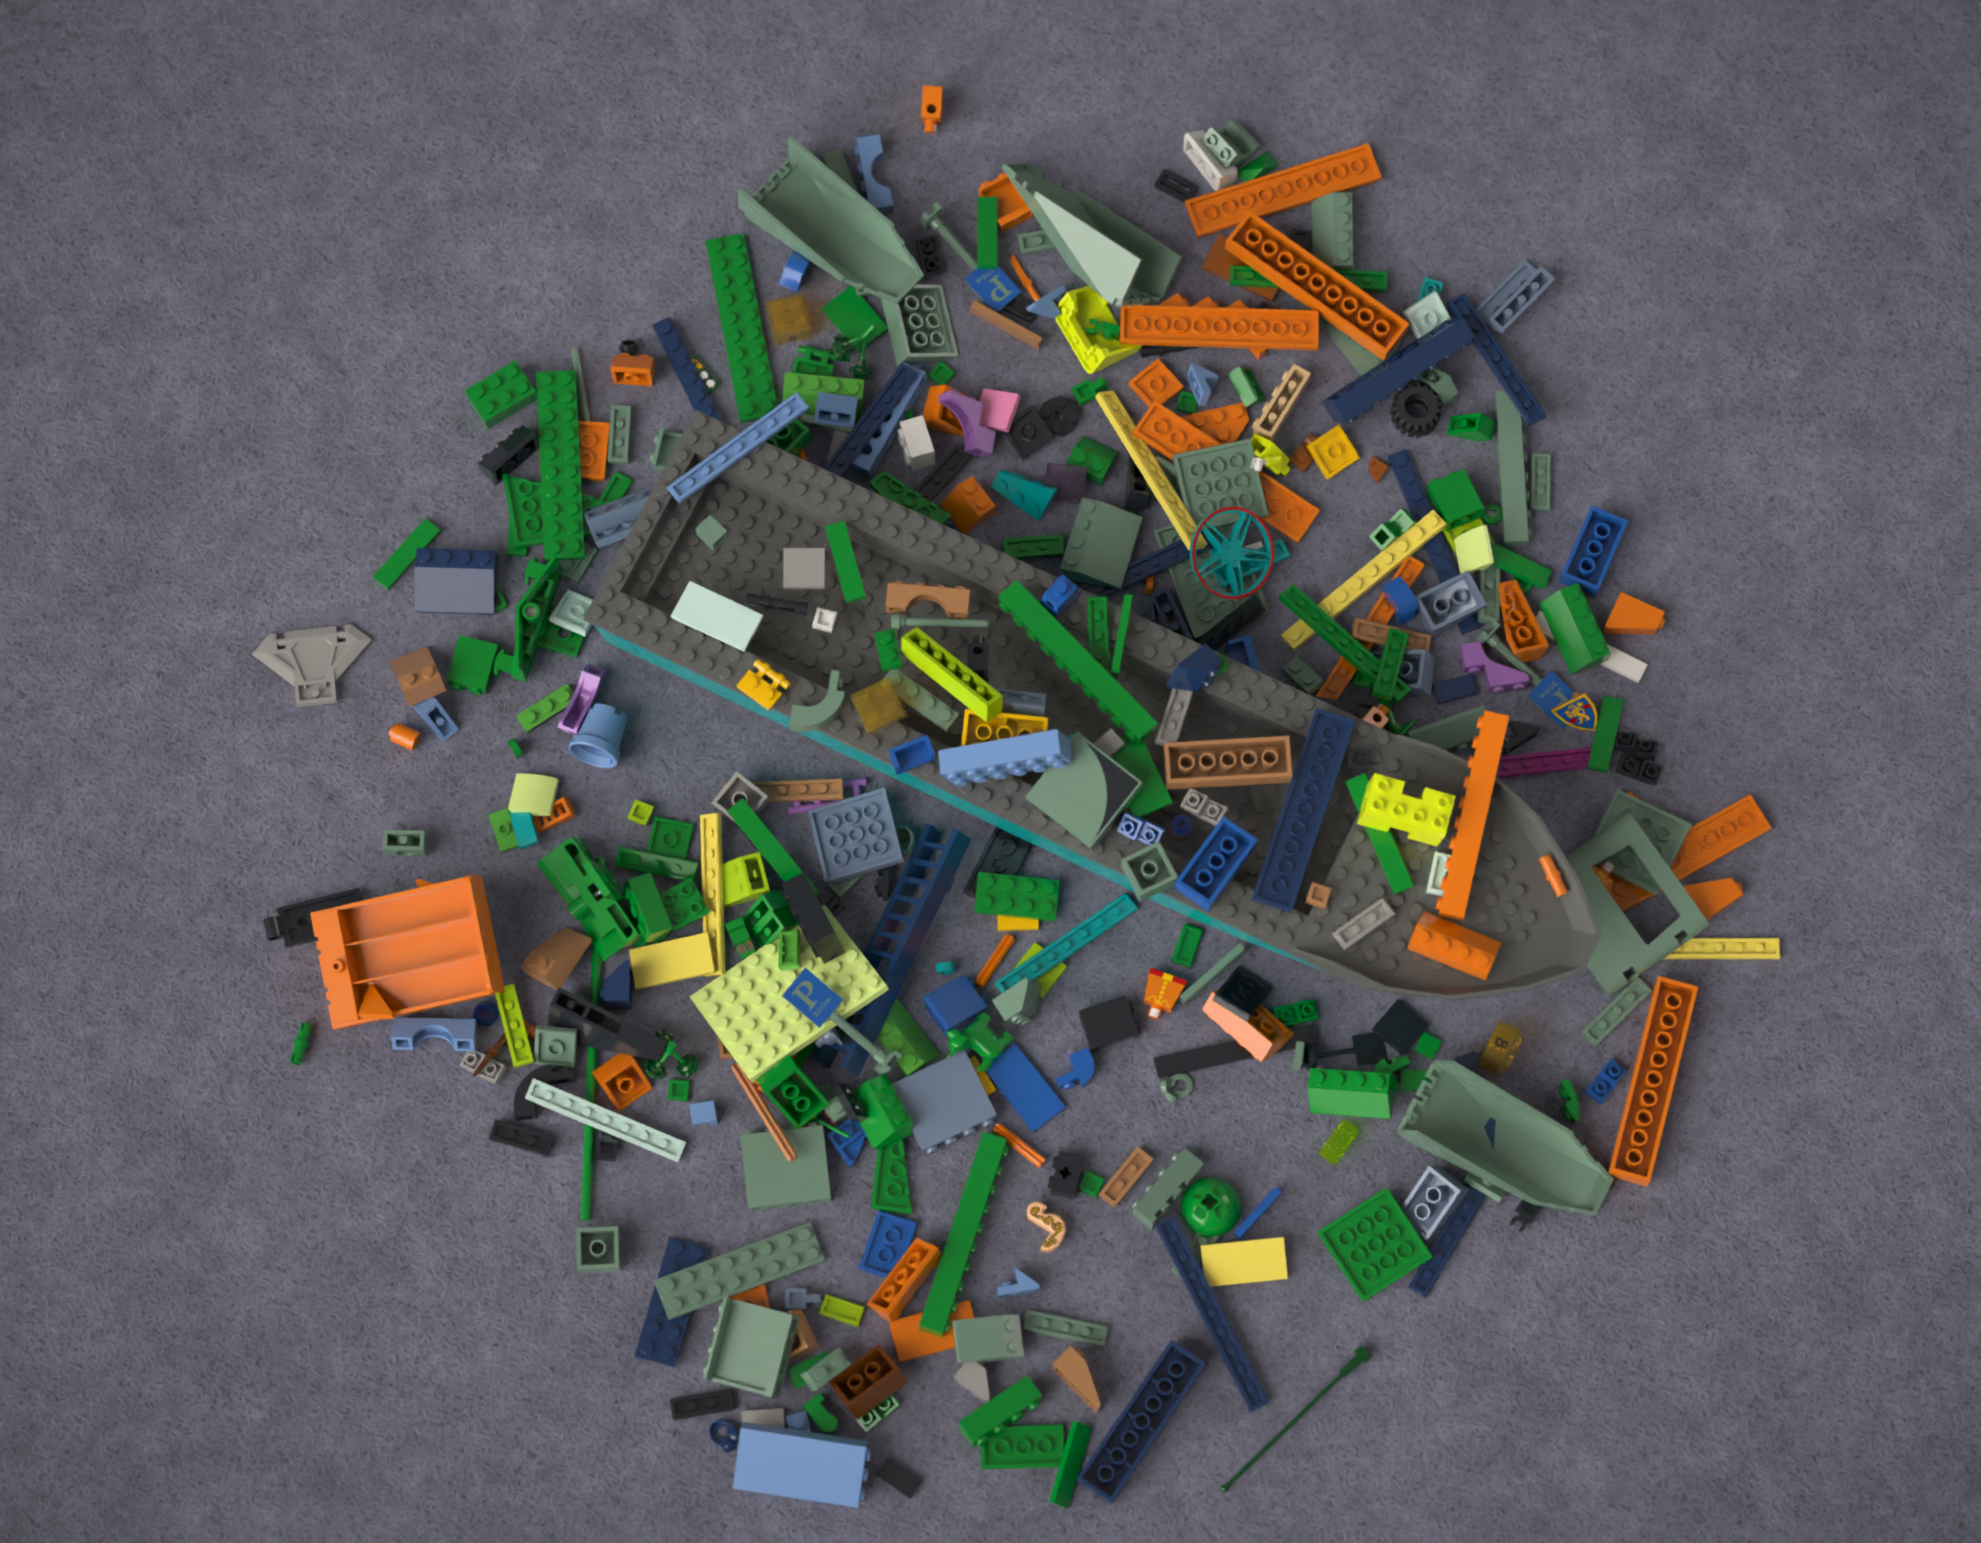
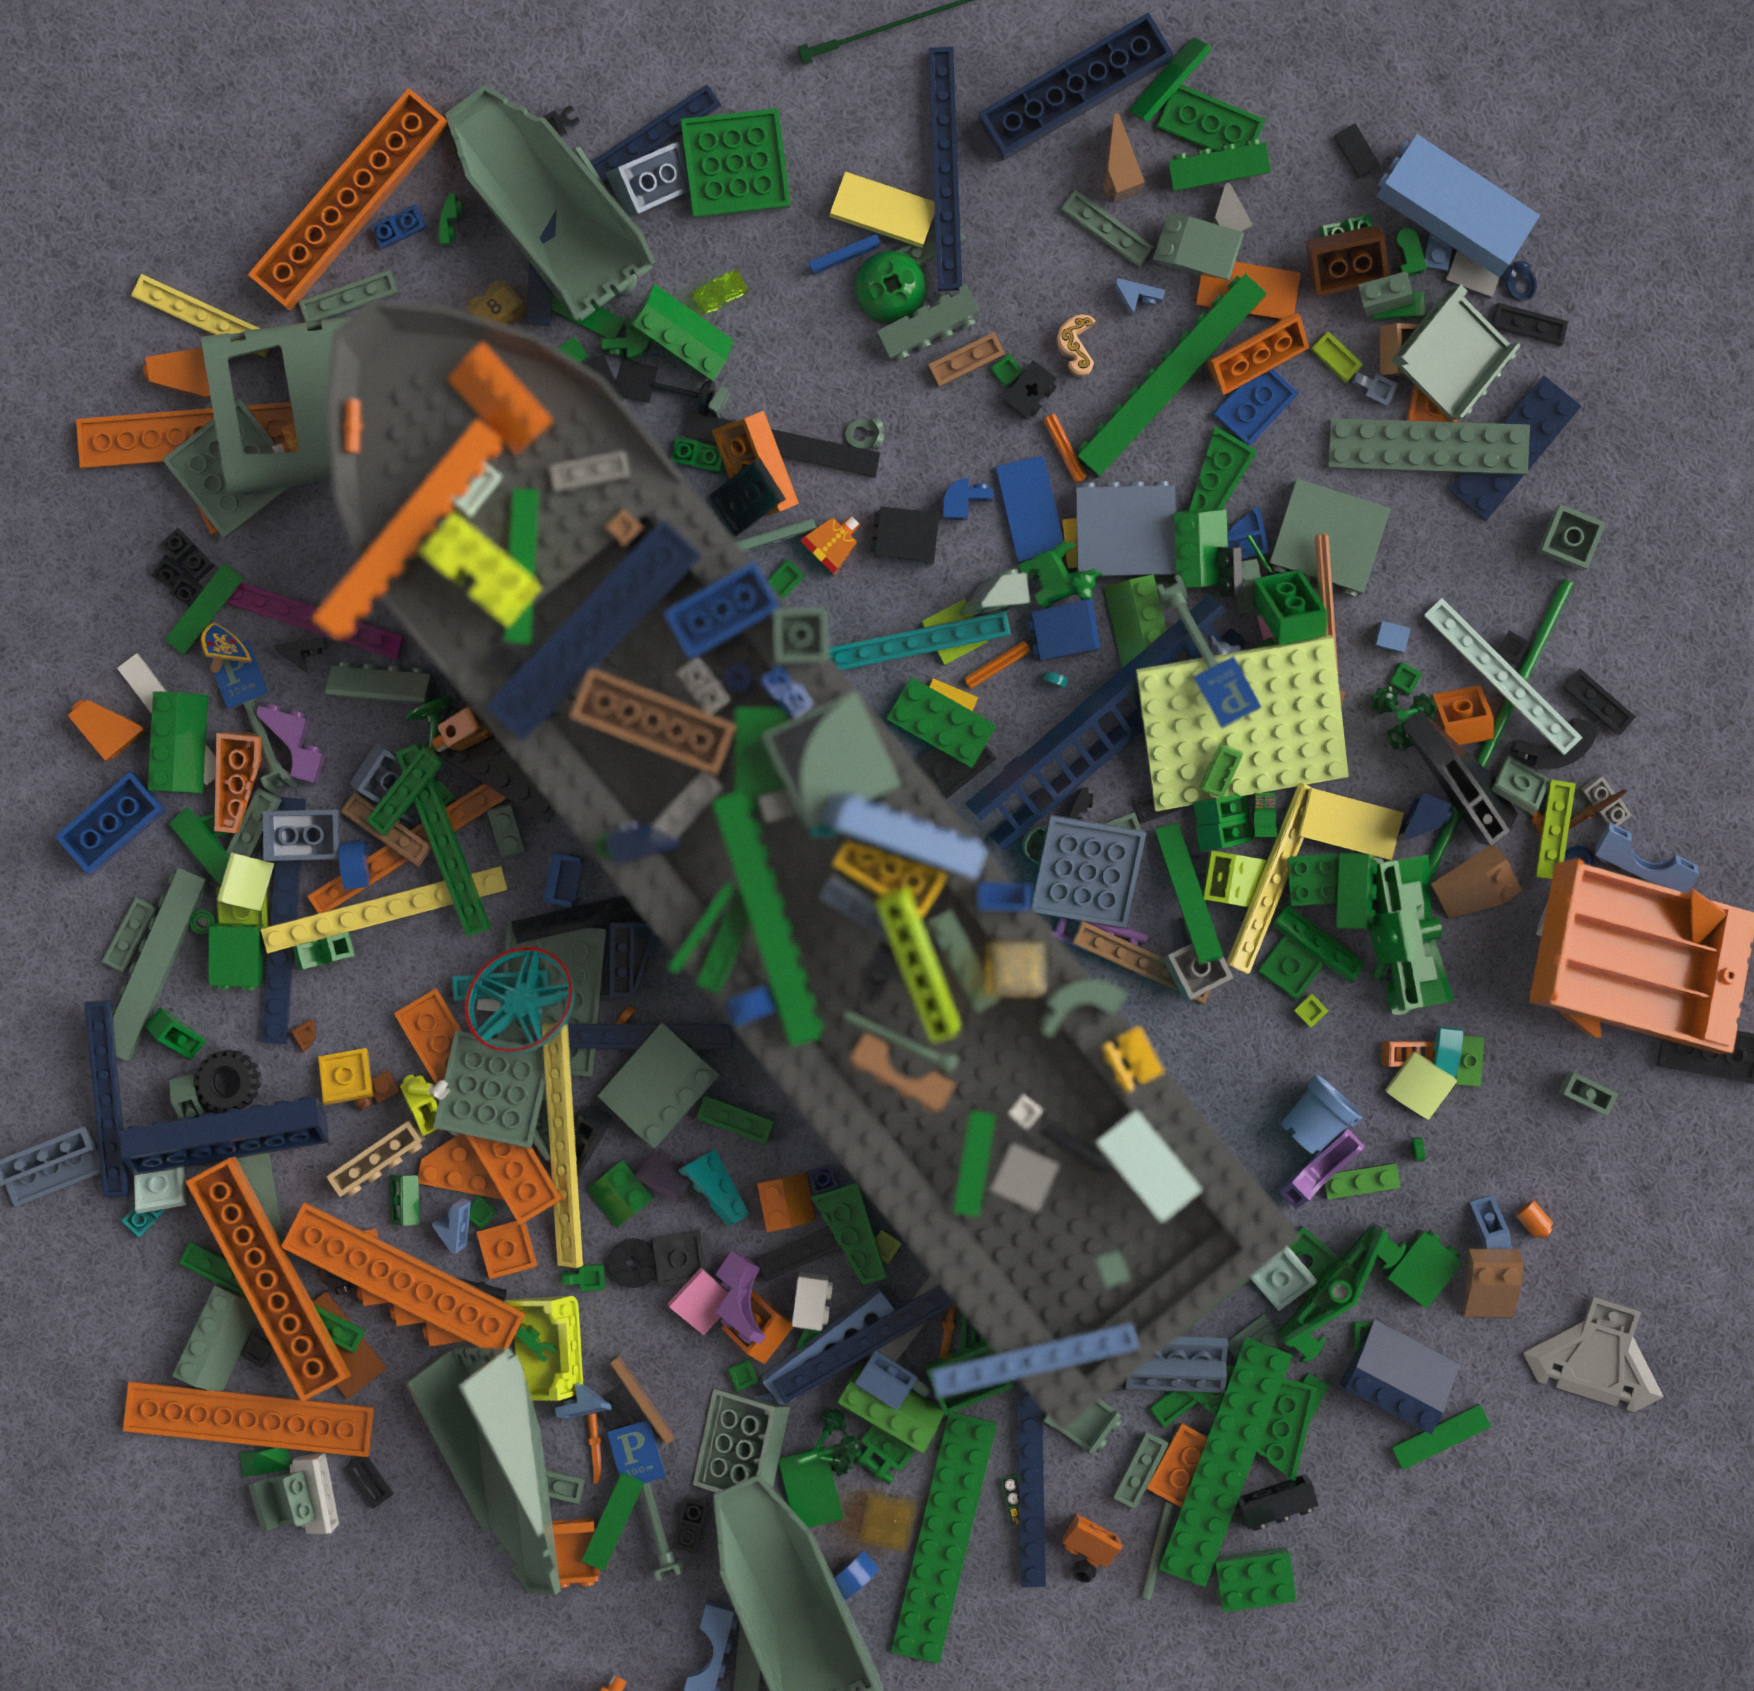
camera: 155 degrees left, 15 degrees up
(812, 918) = (1181, 791): black brick -> none
(888, 650) = (974, 1034): green plate -> none
(1454, 689) = (344, 739): dark blue tile -> none

